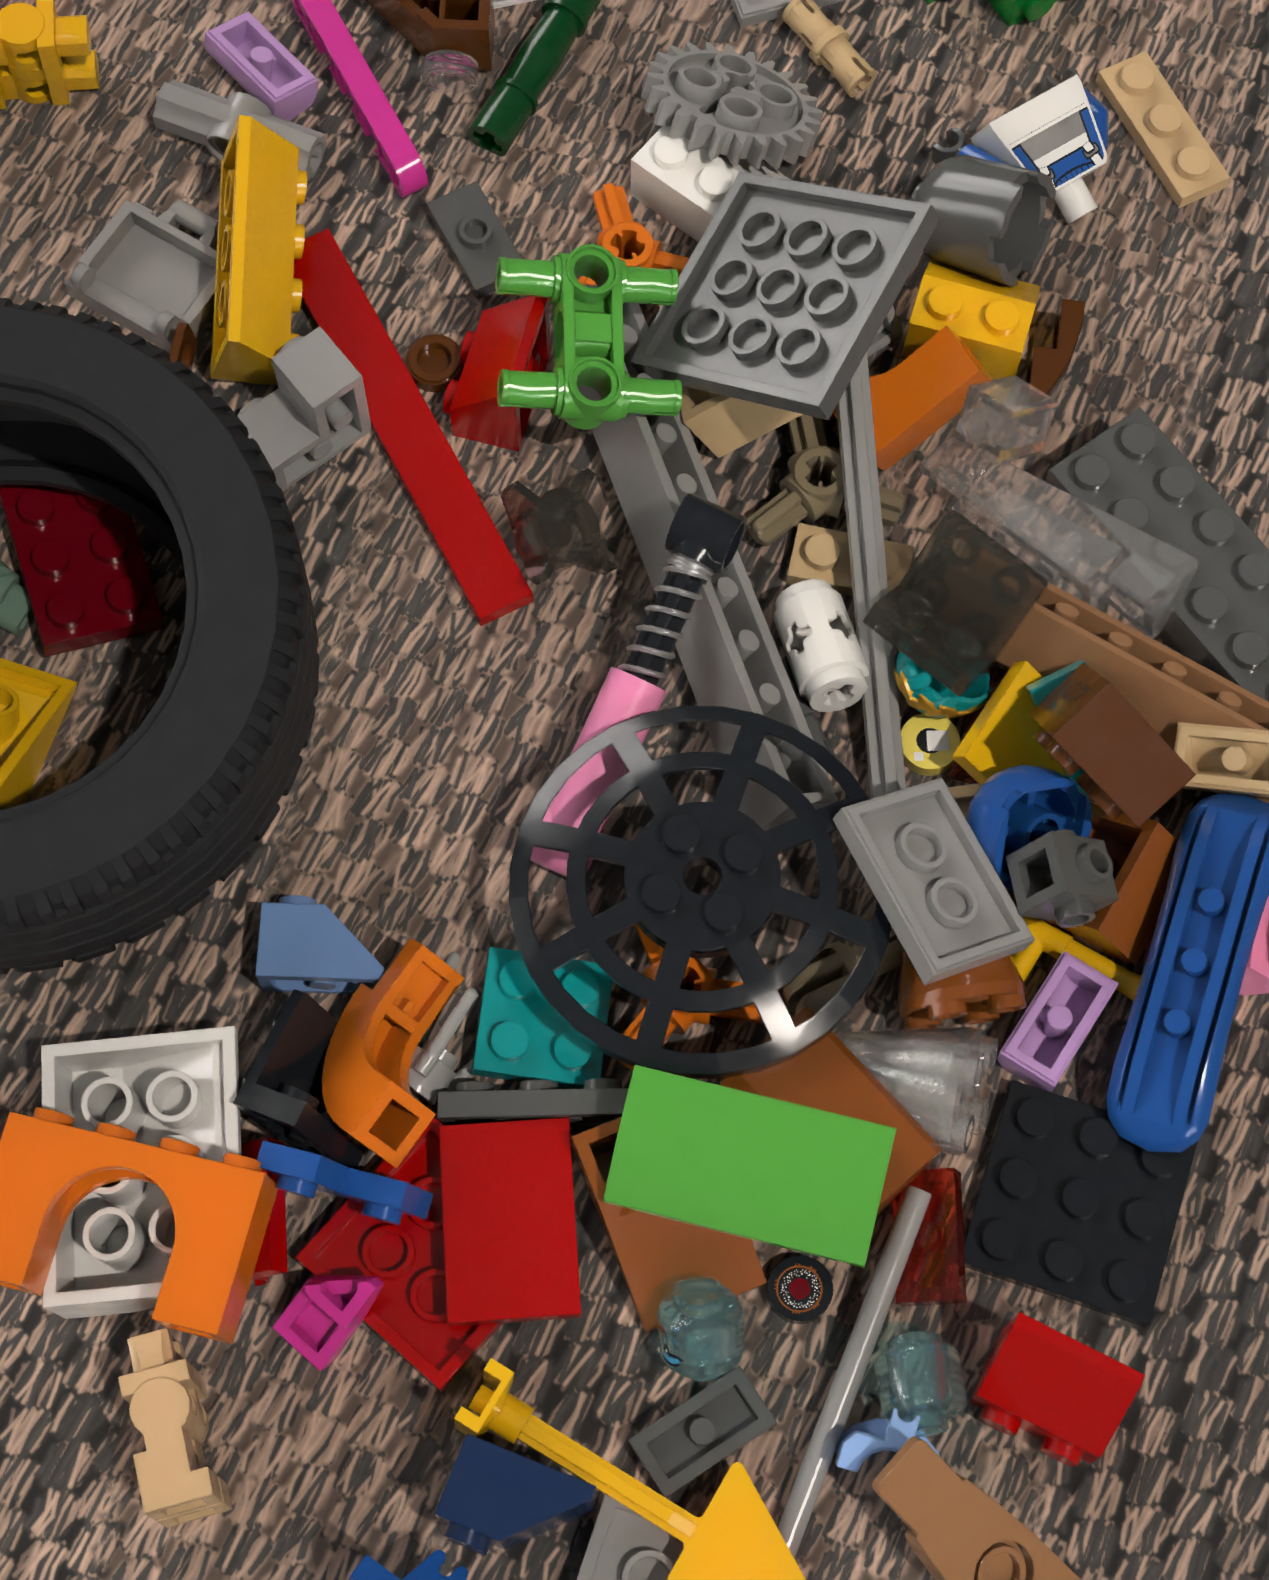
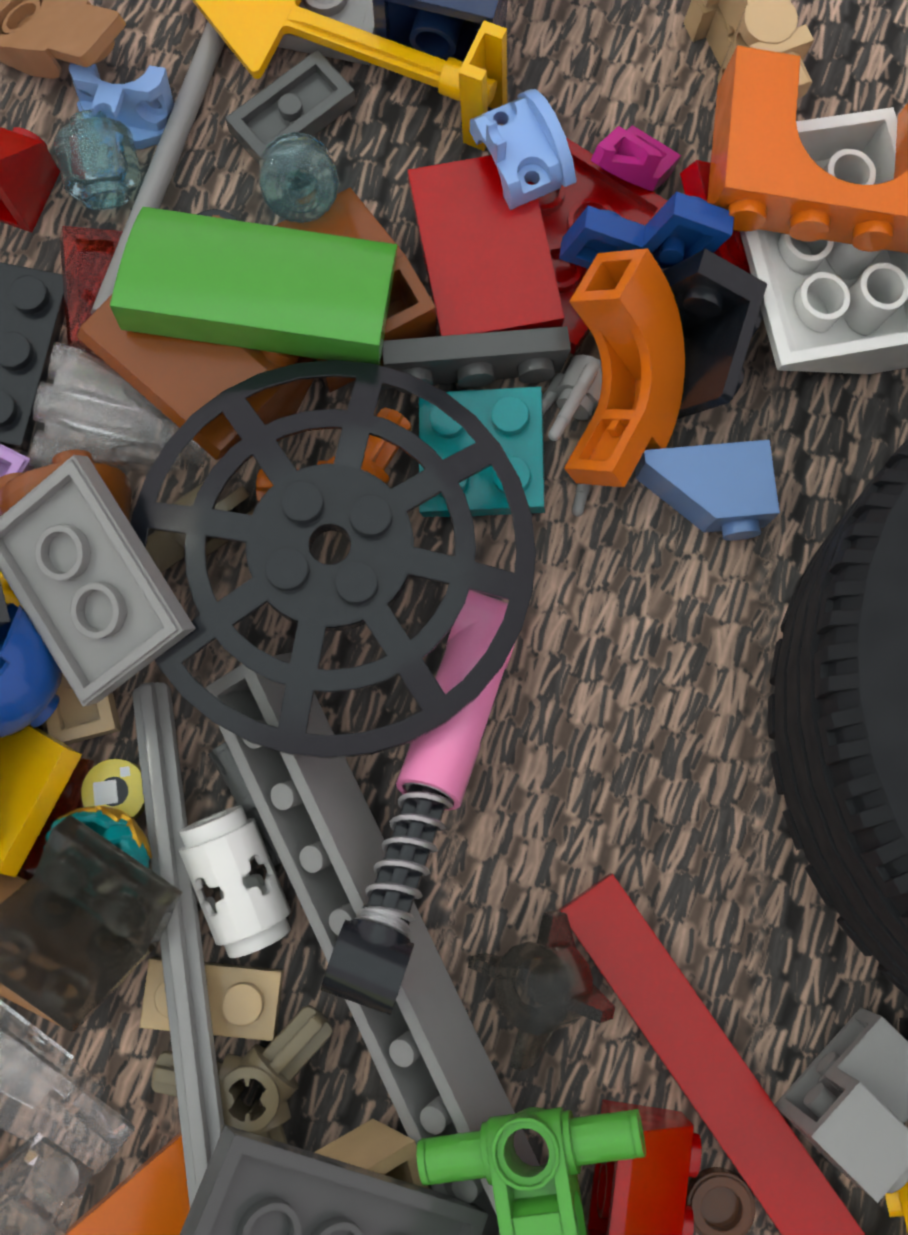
camera: 170 degrees right, 10 degrees up
(454, 1312) = (526, 147): none -> light blue piece

